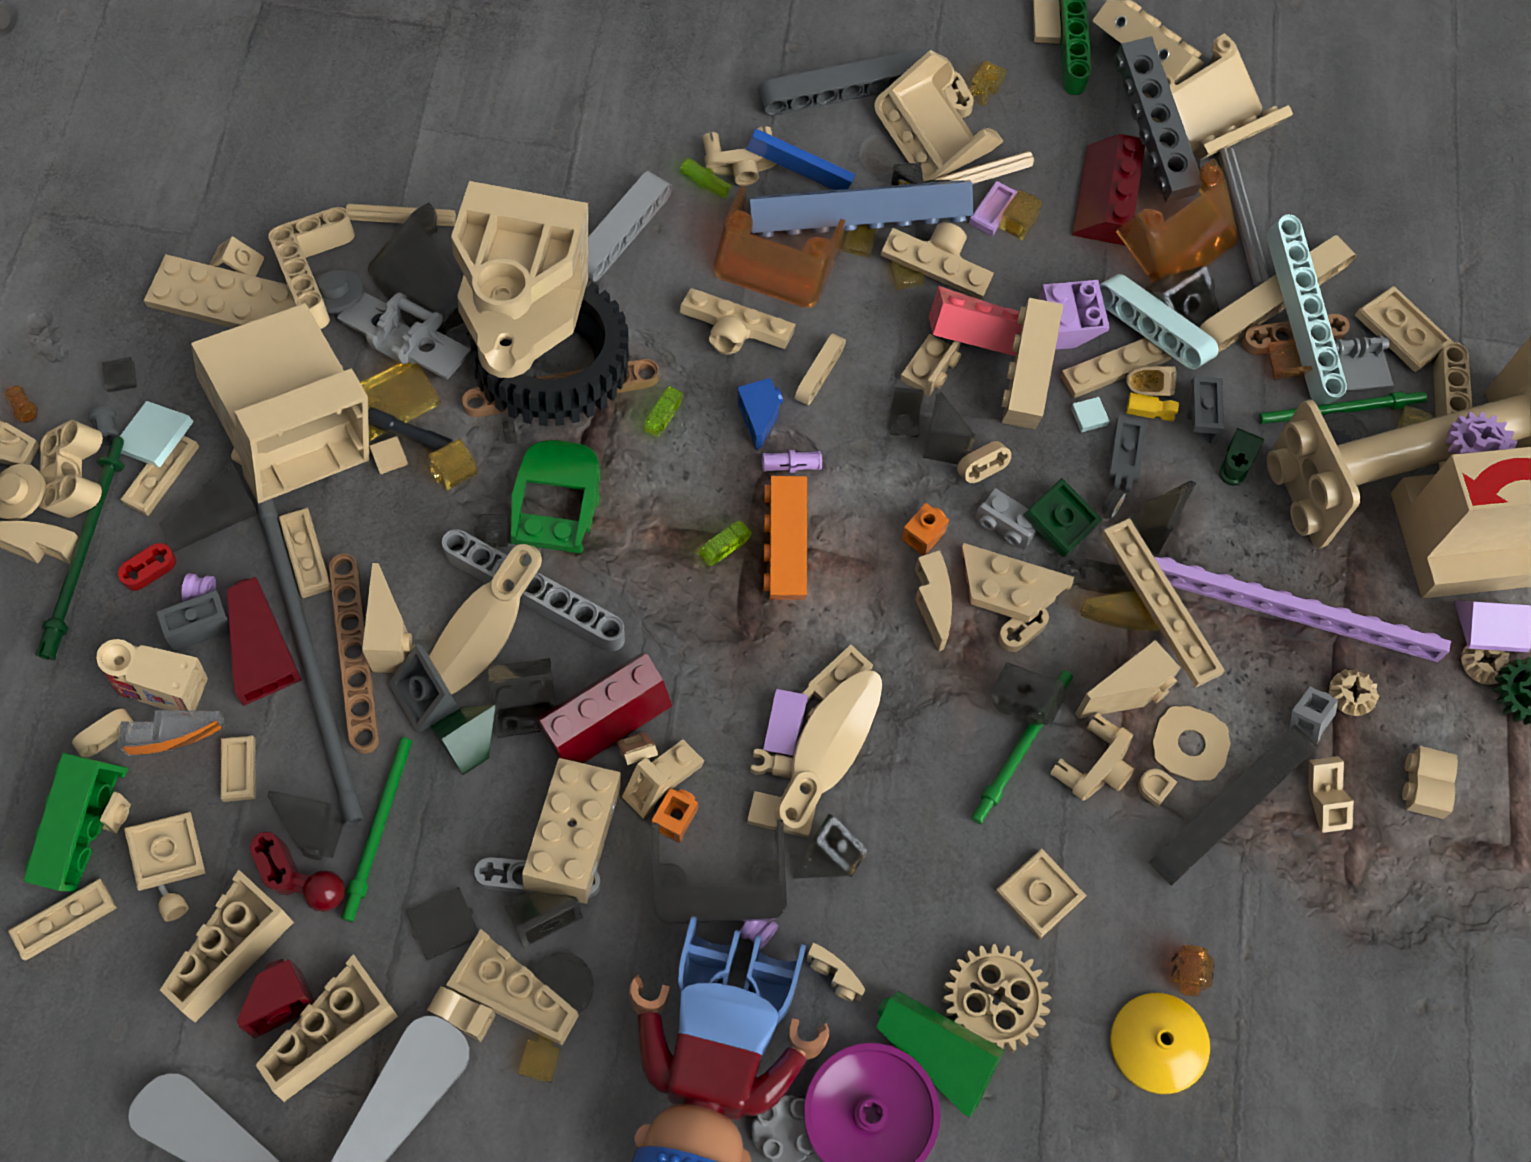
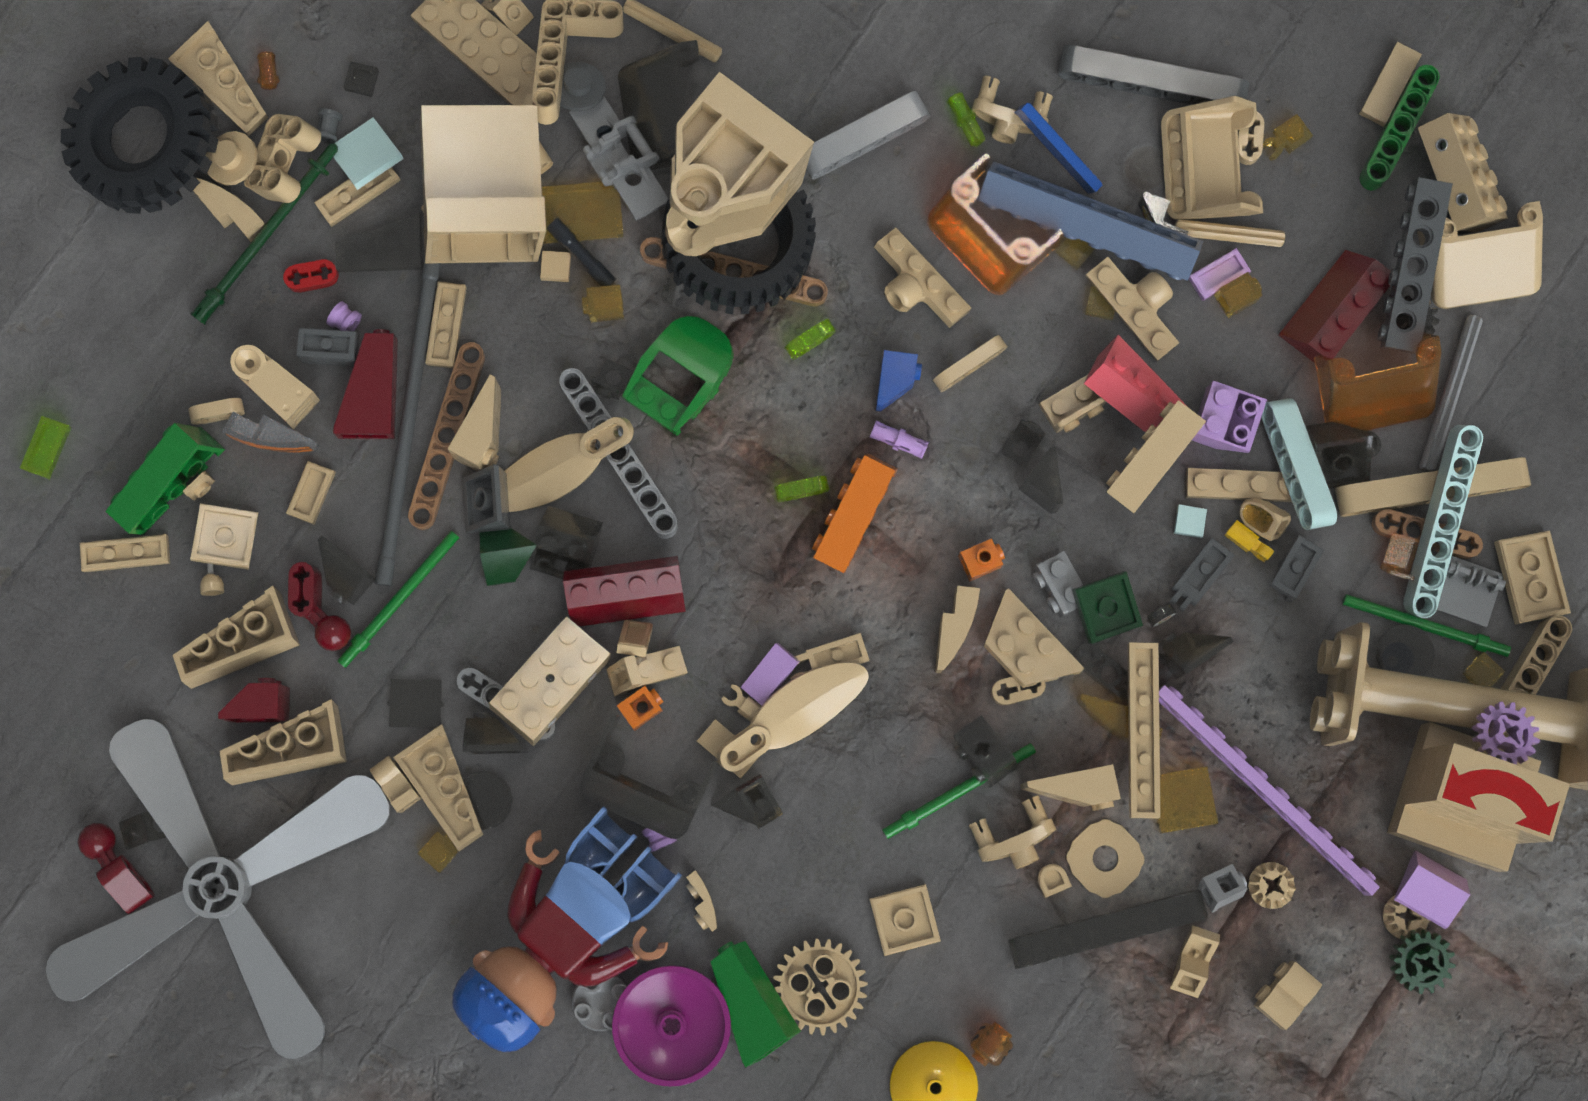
camera: 25 degrees right, 15 degrees up
(984, 462) = (1067, 522): tan beam -> none
(1237, 652) = (1186, 800): none -> clear yellow tile
(1240, 457) = (1304, 624): dark green piece -> none
(1249, 128) = (1489, 308): tan plate -> none

